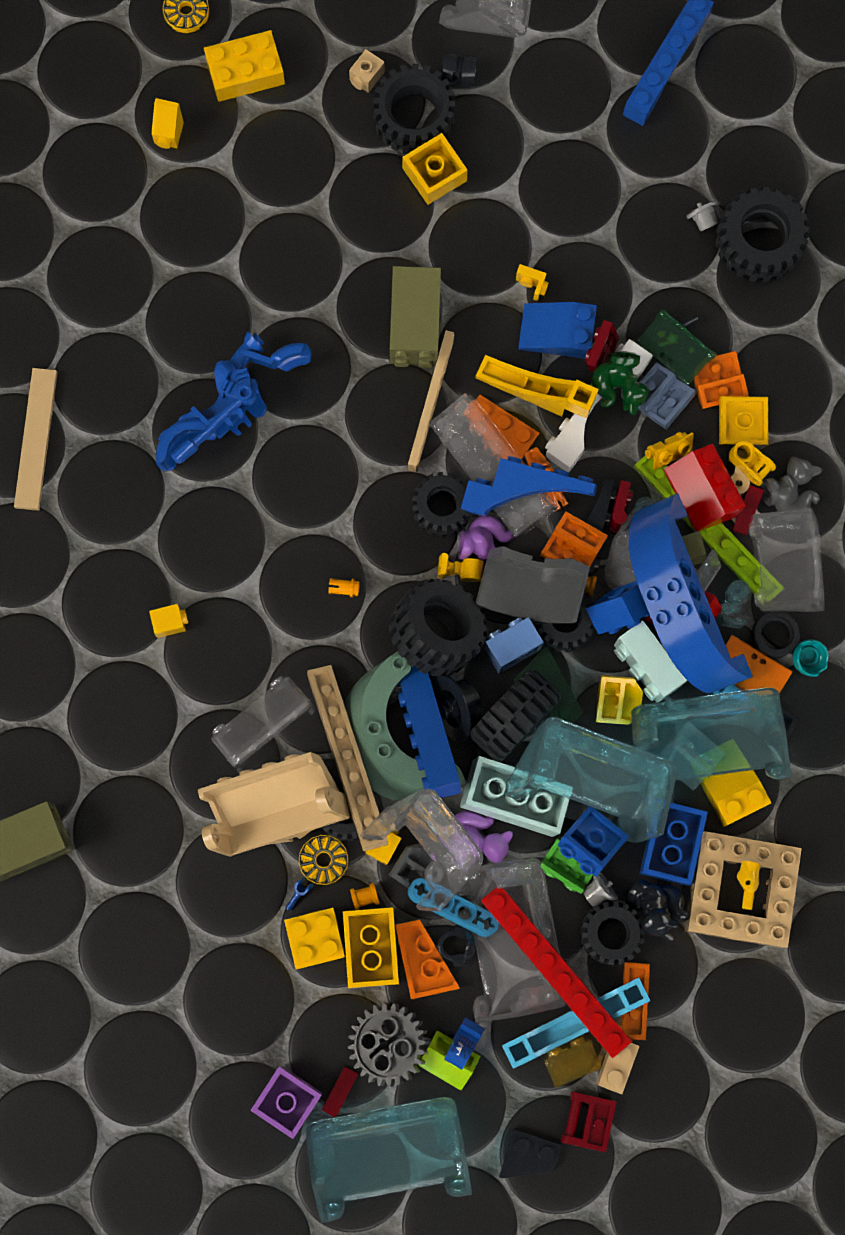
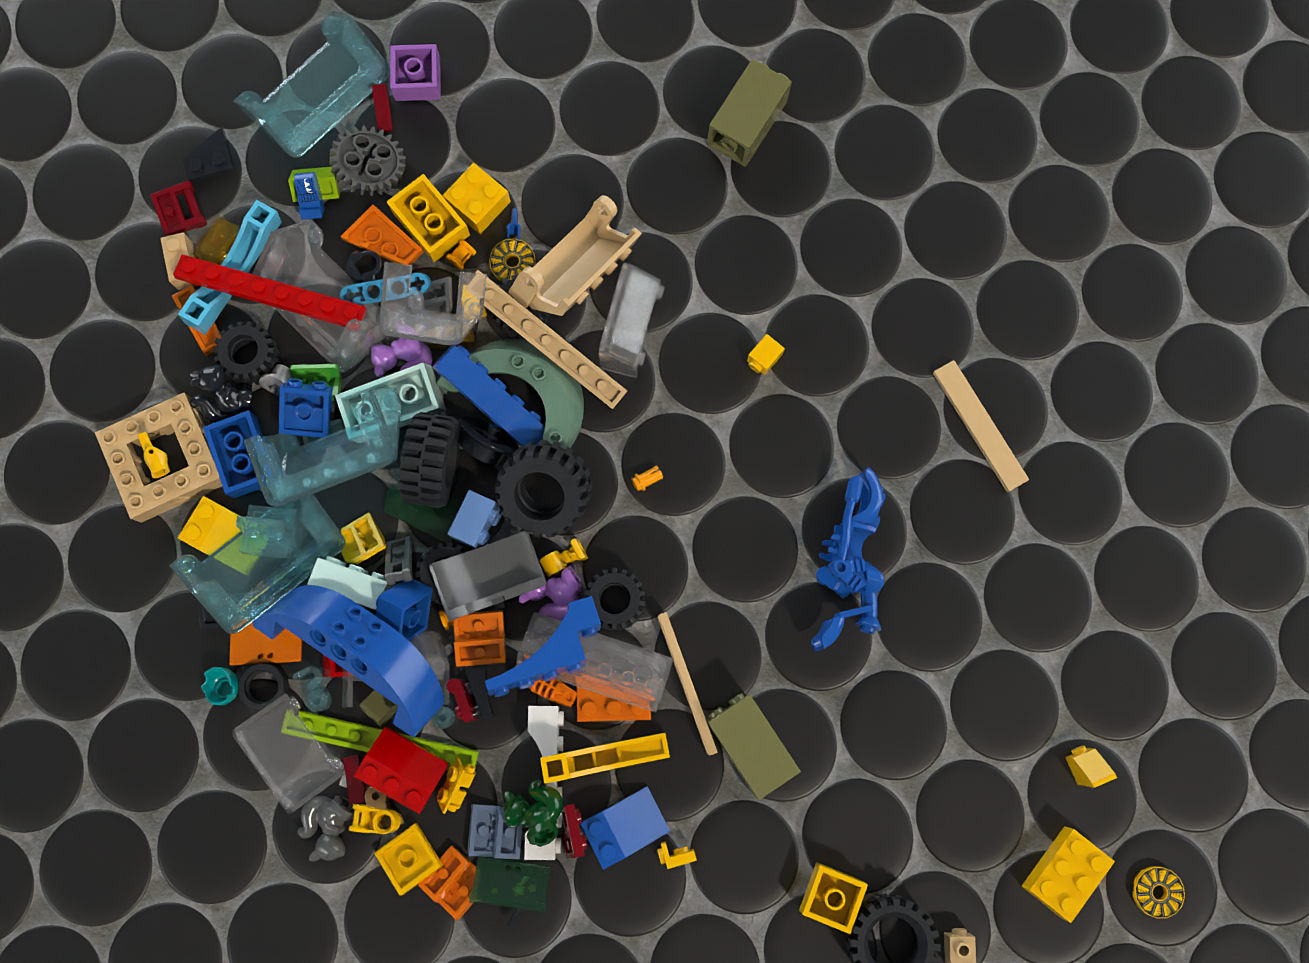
camera: 145 degrees right, 0 degrees up
(597, 655) = (398, 561): none -> dark grey plate

